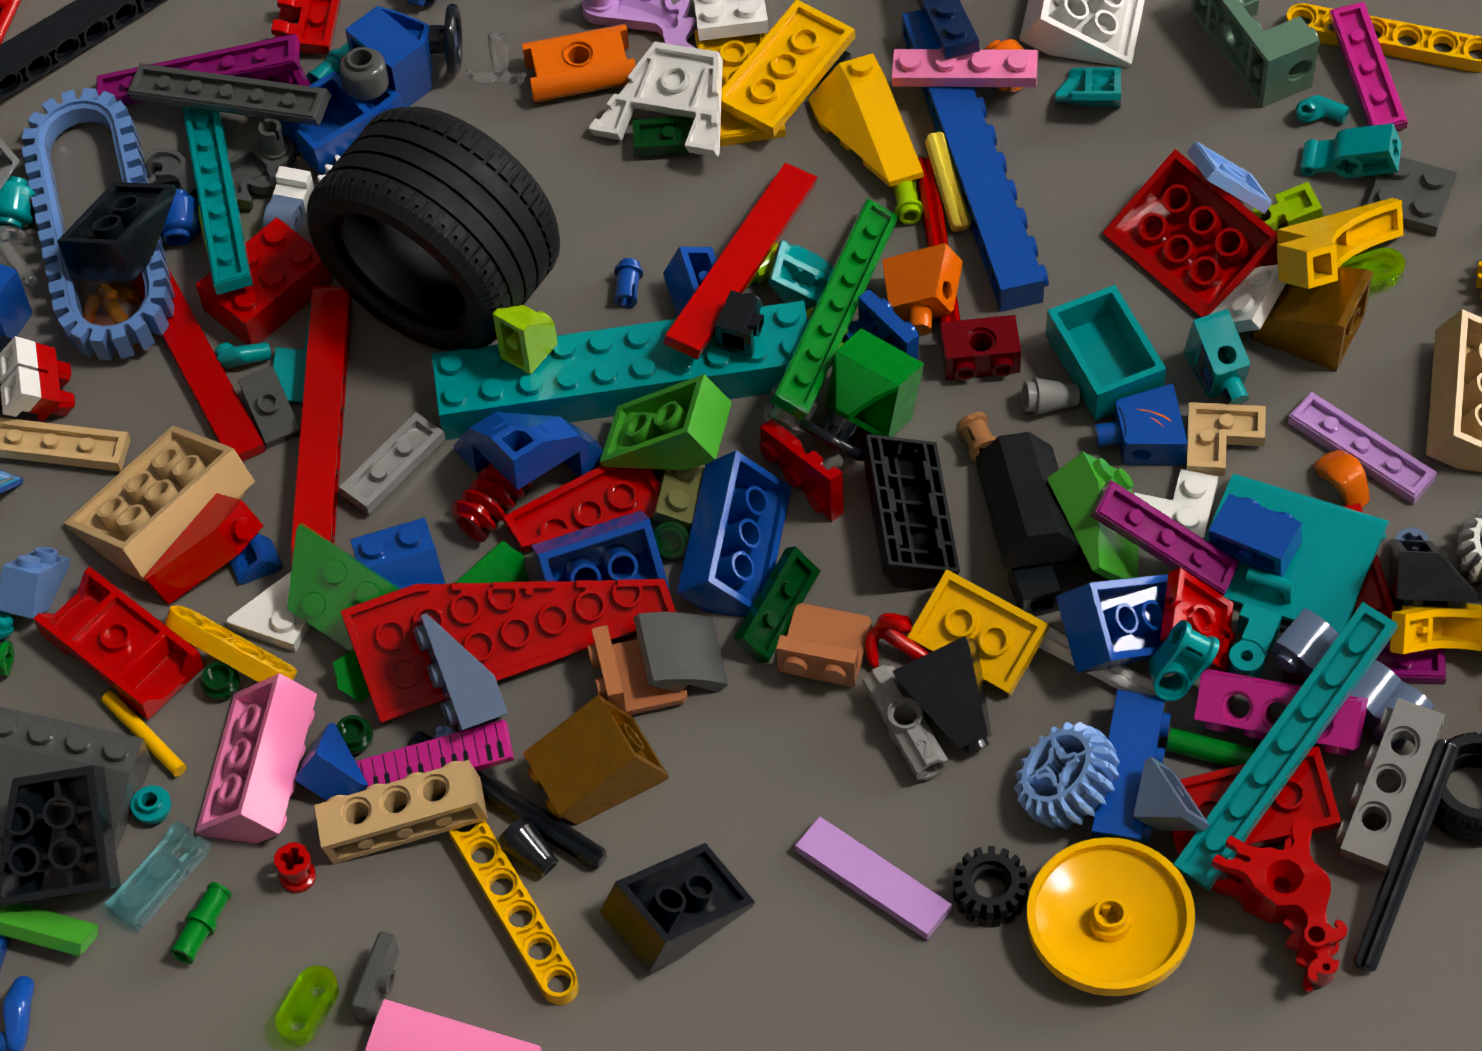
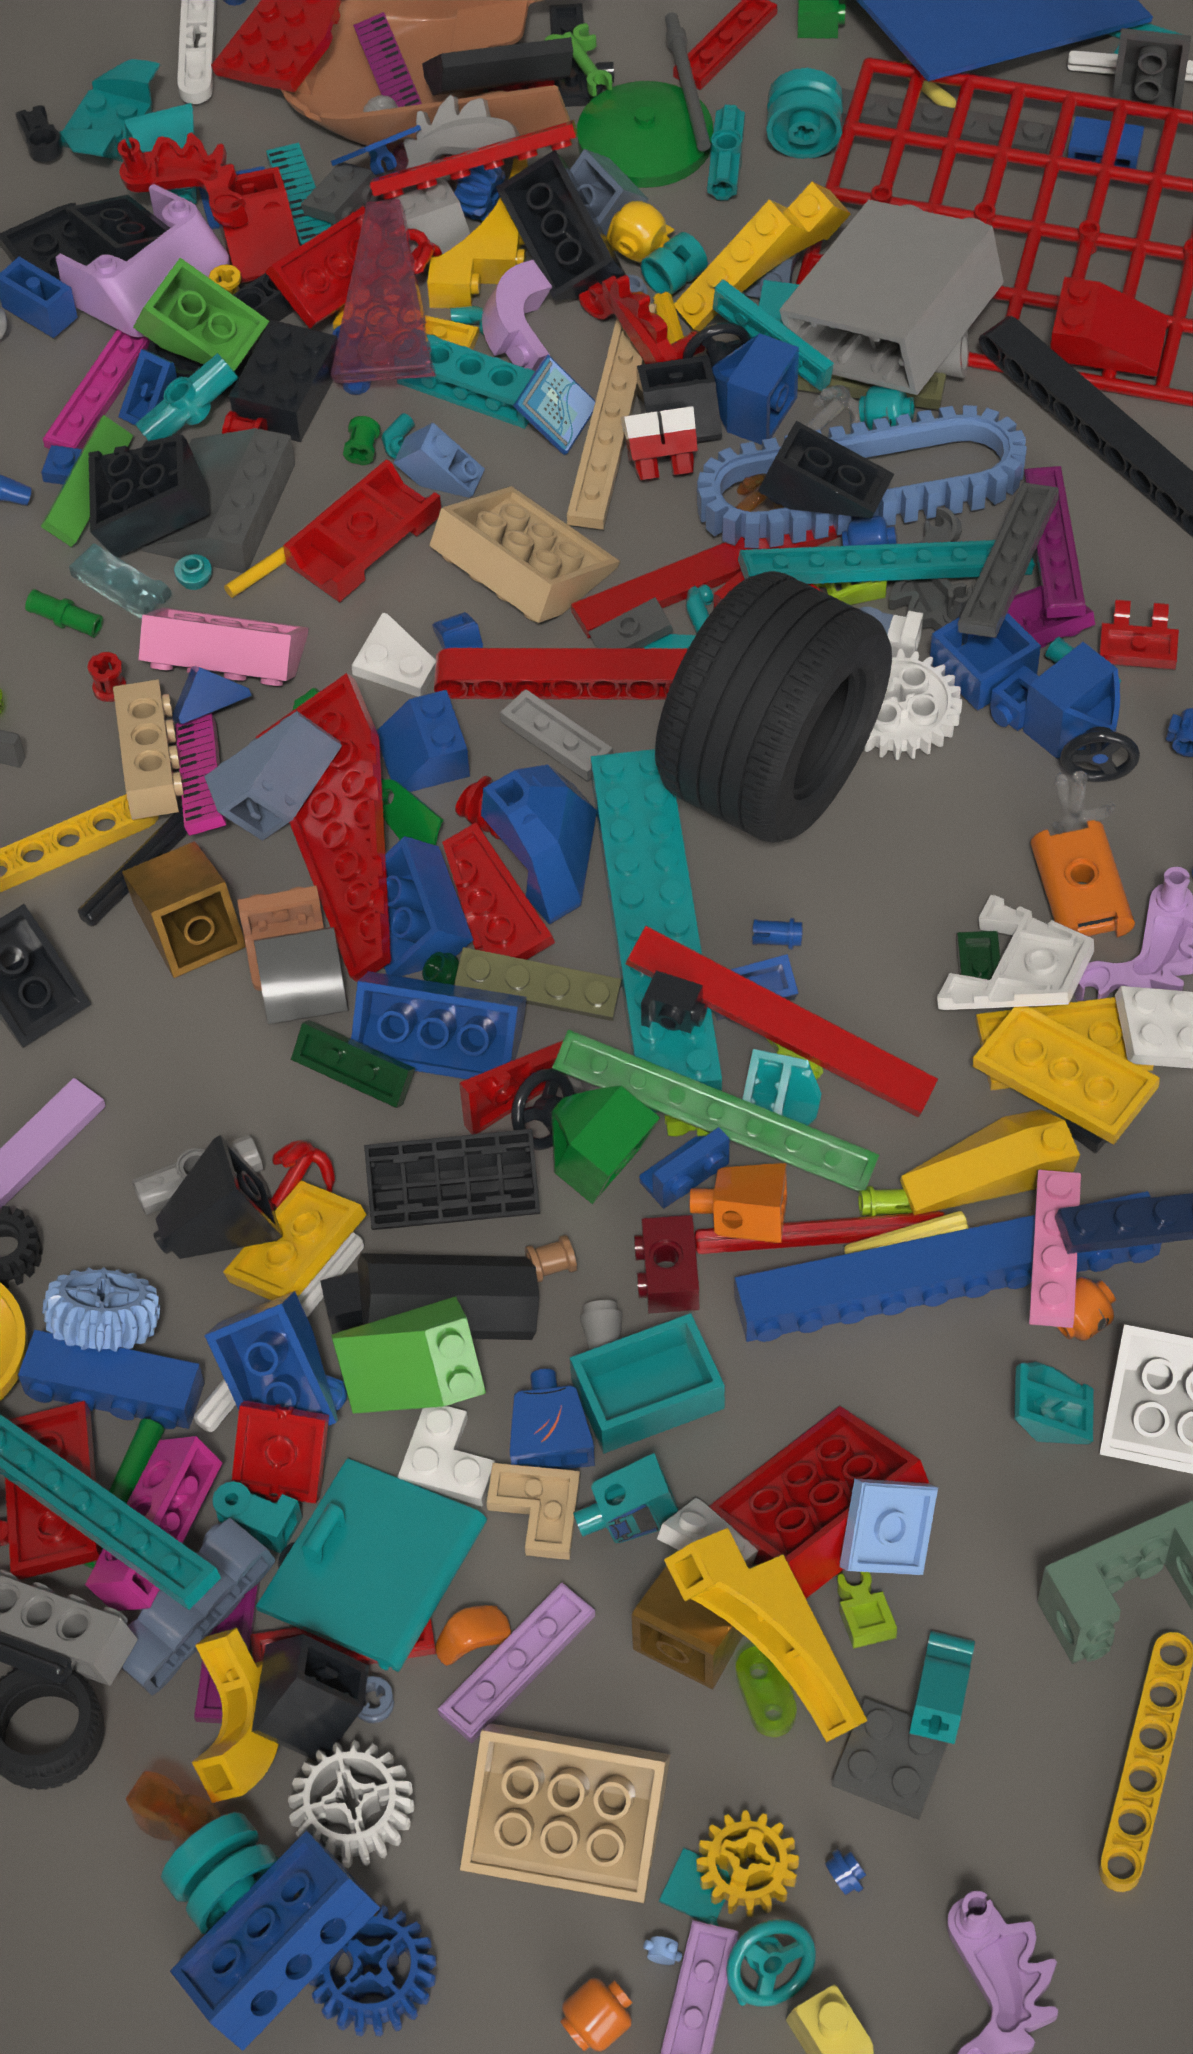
camera: 90 degrees right, 0 degrees up
(203, 547) = (463, 586): red slope -> none
(219, 681) = (319, 612): dark green plate -> none
(226, 645) = (352, 618): yellow beam -> none
(328, 581) = (394, 678): green wing -> none
(356, 733) = (248, 717): dark green plate -> none
(364, 74) = (1021, 661): dark grey head -> none
(524, 336) = (659, 805): lime slope -> none
(528, 846) = (102, 856): black cone -> none
(669, 428) = (552, 951): bright green slope -> none
(823, 644) = (298, 1103): nougat bracket -> none
(1163, 537) = (370, 1412): magenta tile -> none
(1165, 801) = (47, 1393): sand blue slope -> none
(1186, 655) = (209, 1416): teal piece -> none
(1256, 535) = (373, 1511): blue brick -> none
(1321, 107) = (1028, 1661): teal arm -> none
(1367, 66) = (1086, 1721): dark pink tile -> none

